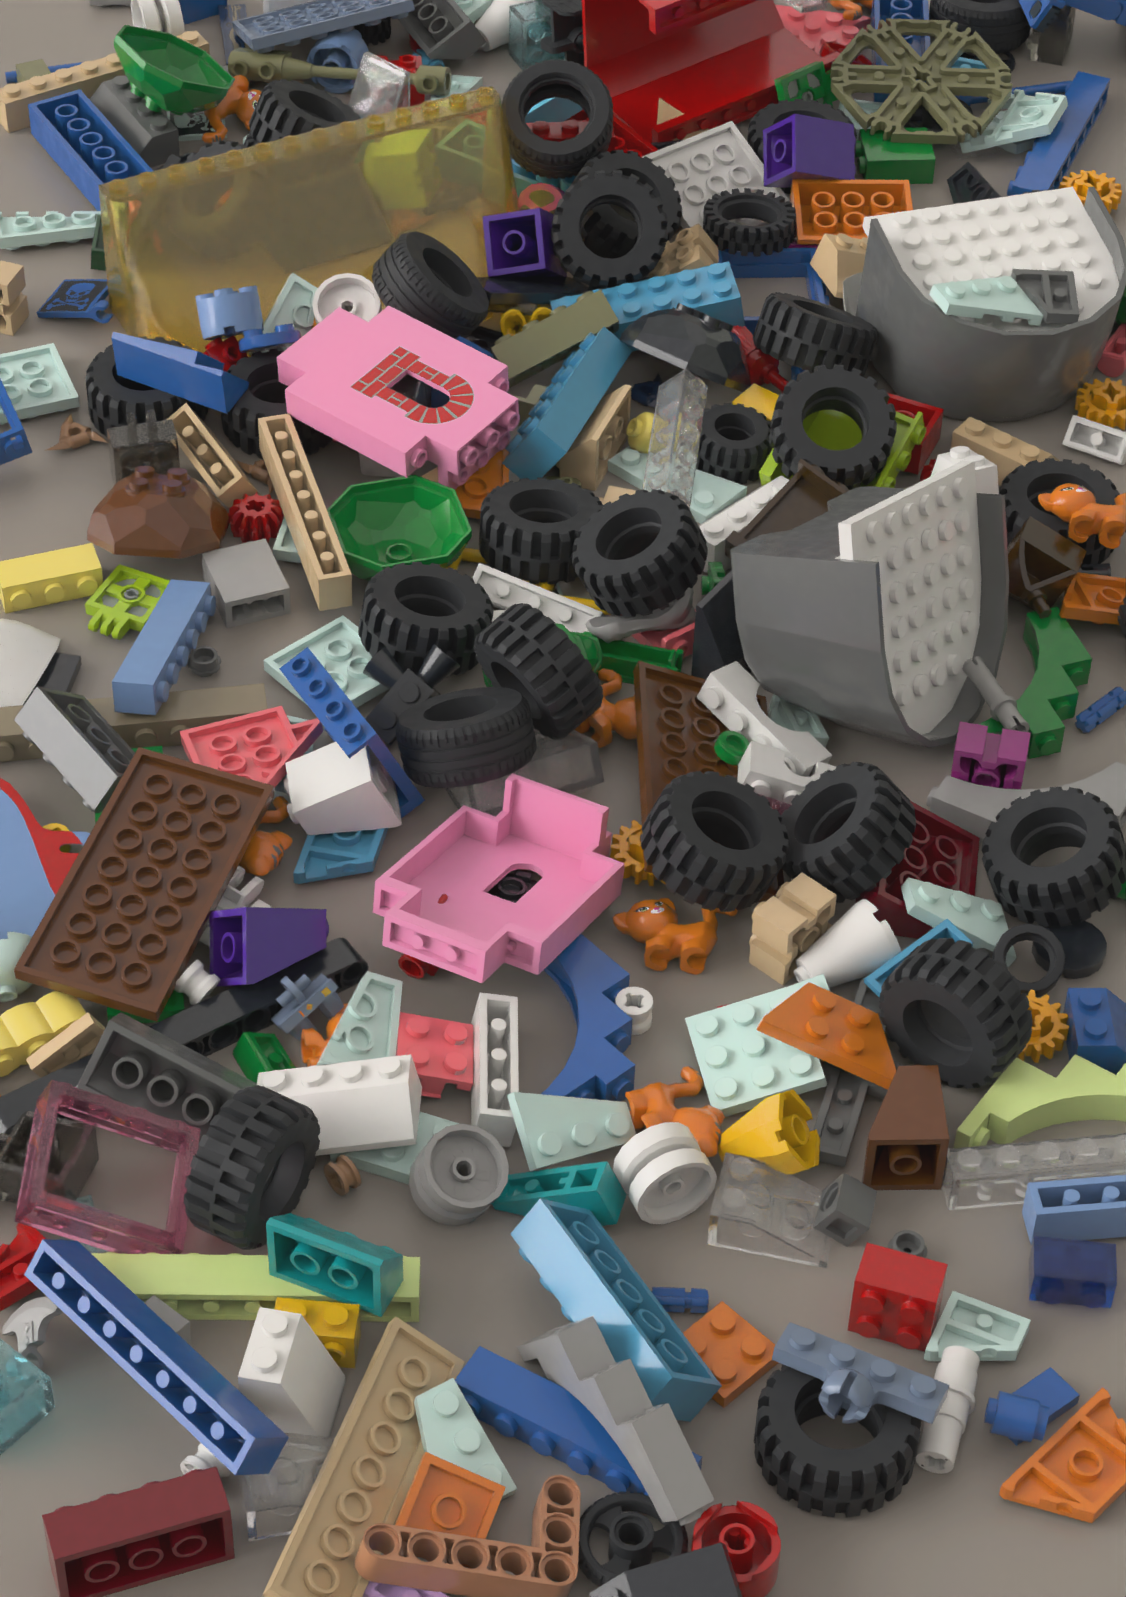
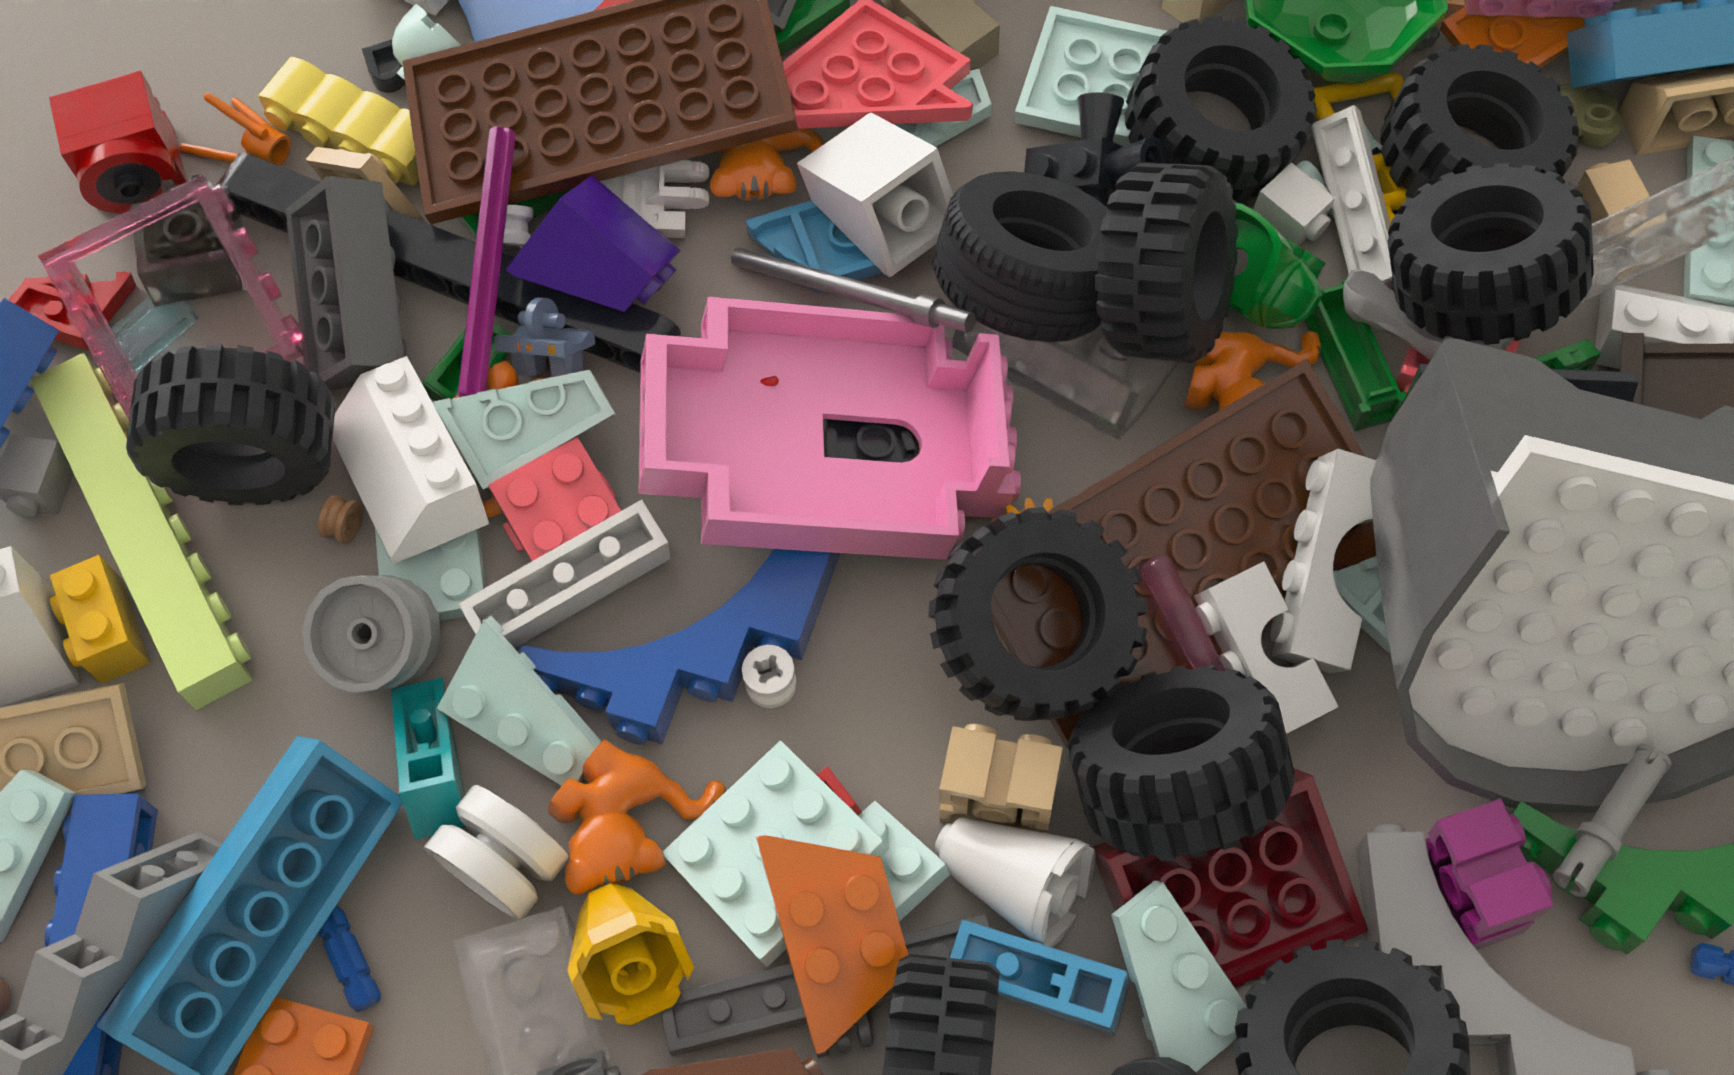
camera: 65 degrees right, 20 degrees up
(232, 991) = (487, 262): none -> magenta axle
(333, 1262) = (145, 578): teal slope -> none
(345, 722) = (947, 123): blue panel -> none
(463, 799) = (924, 309): none -> flat silver bar
(657, 926) = (915, 674): orange animal -> none
(731, 747) = (1267, 543): green tile -> none

